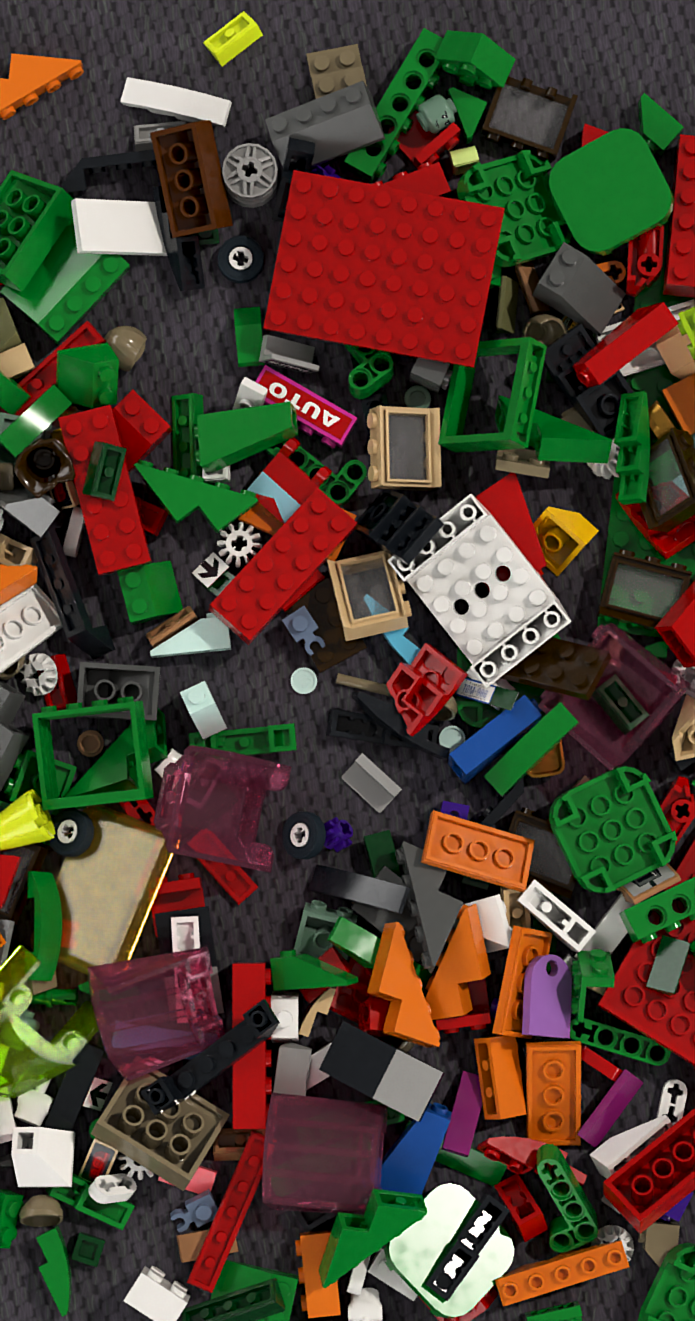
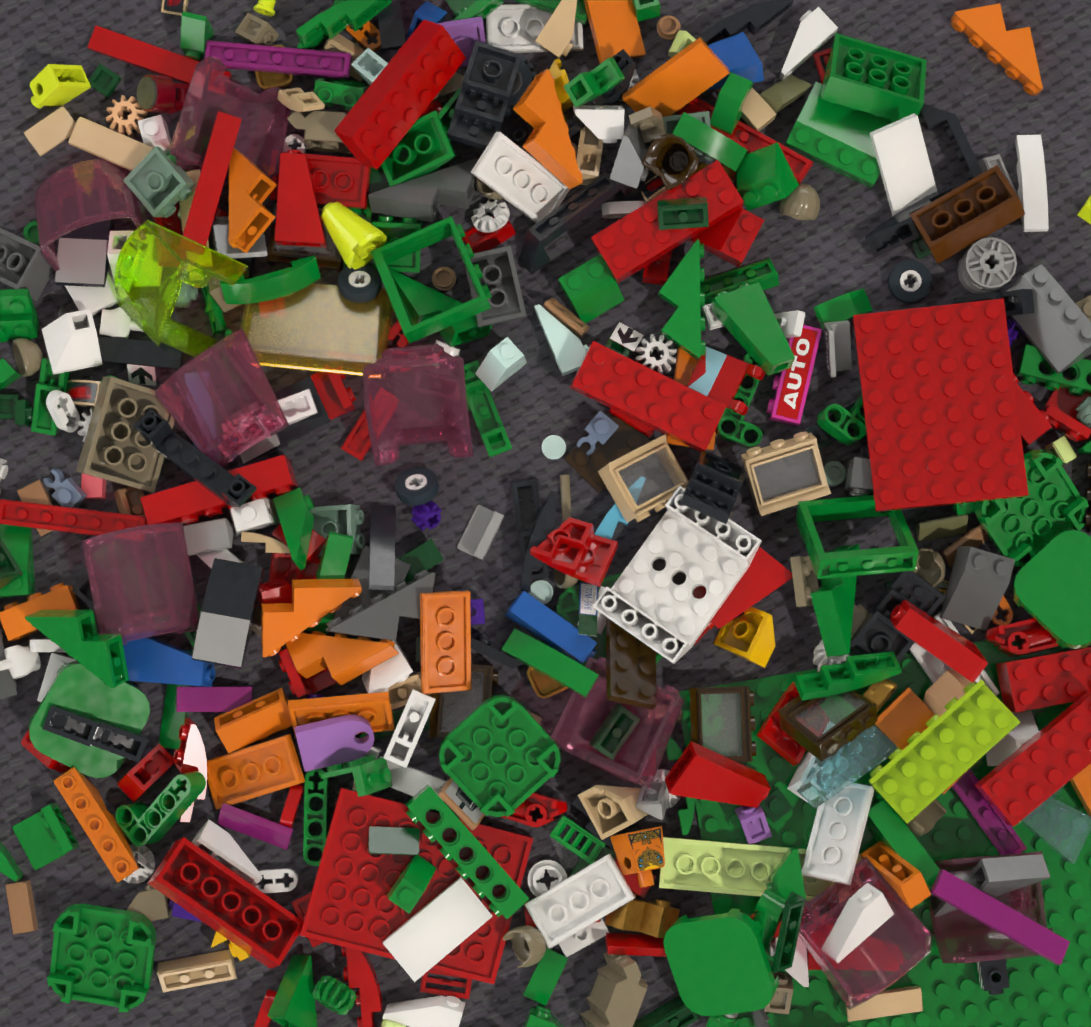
camera: 75 degrees right, 0 degrees up
(101, 1231) = (23, 413): none -> dark green plate

